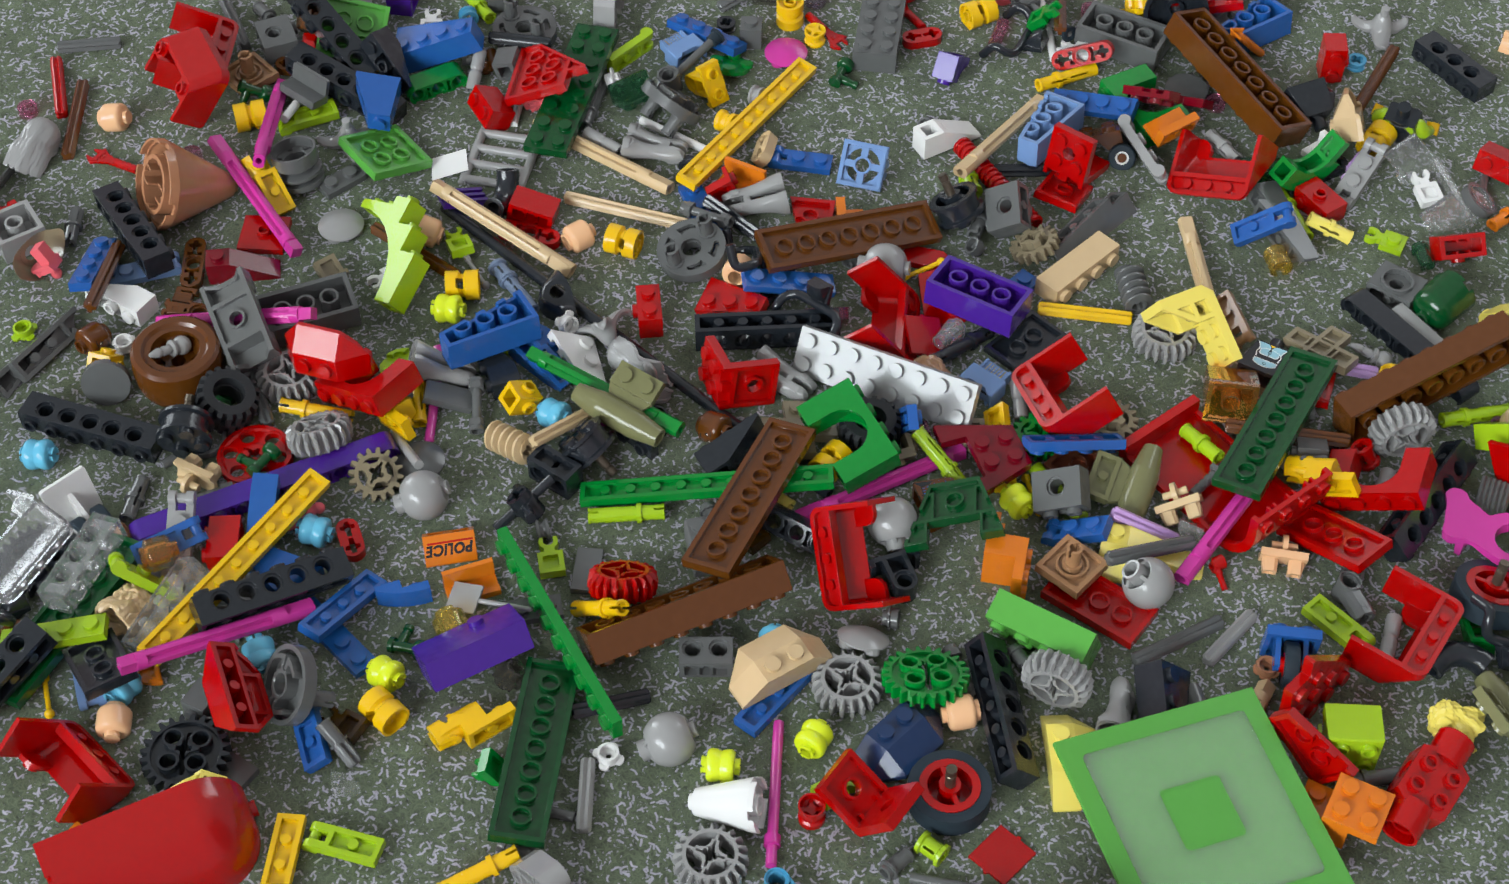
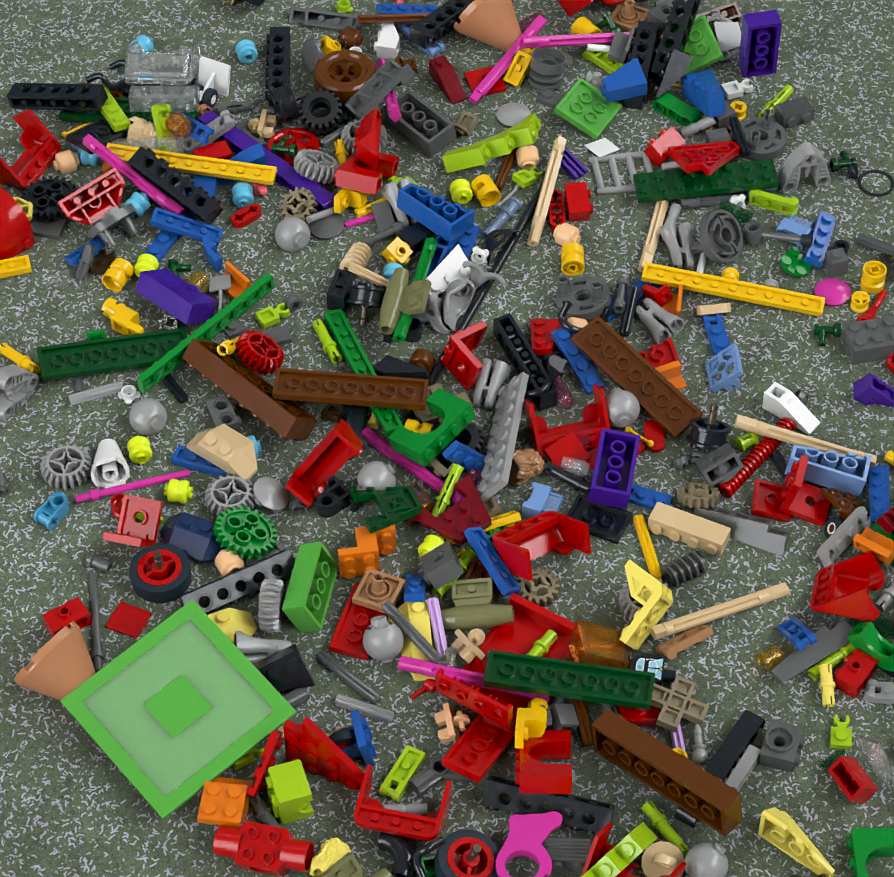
camera: 70 degrees right, 0 degrees up
(179, 345) = (352, 72): light grey bar -> none
(191, 258) = (448, 52): reddish brown beam -> none
(344, 844) = (19, 293): lime plate -> none
(449, 547) = (261, 261): orange panel -> none
(468, 10) = (757, 104): dark azure bush -> none
(506, 183) = (593, 179): black cylinder -> none
(525, 503) = (306, 285): black bar -> none
(621, 209) = (609, 254): tan axle -> none
(648, 311) = (512, 294): red brick -> none
(708, 83) = (761, 254): yellow pin -> none
(931, 848) = (116, 577): lime bush -> none
(1366, 454) = (580, 753): red bush -> none
(1402, 428) = (610, 771): light grey gear -> none
(1443, 300) = (775, 777): dark green cylinder -> none

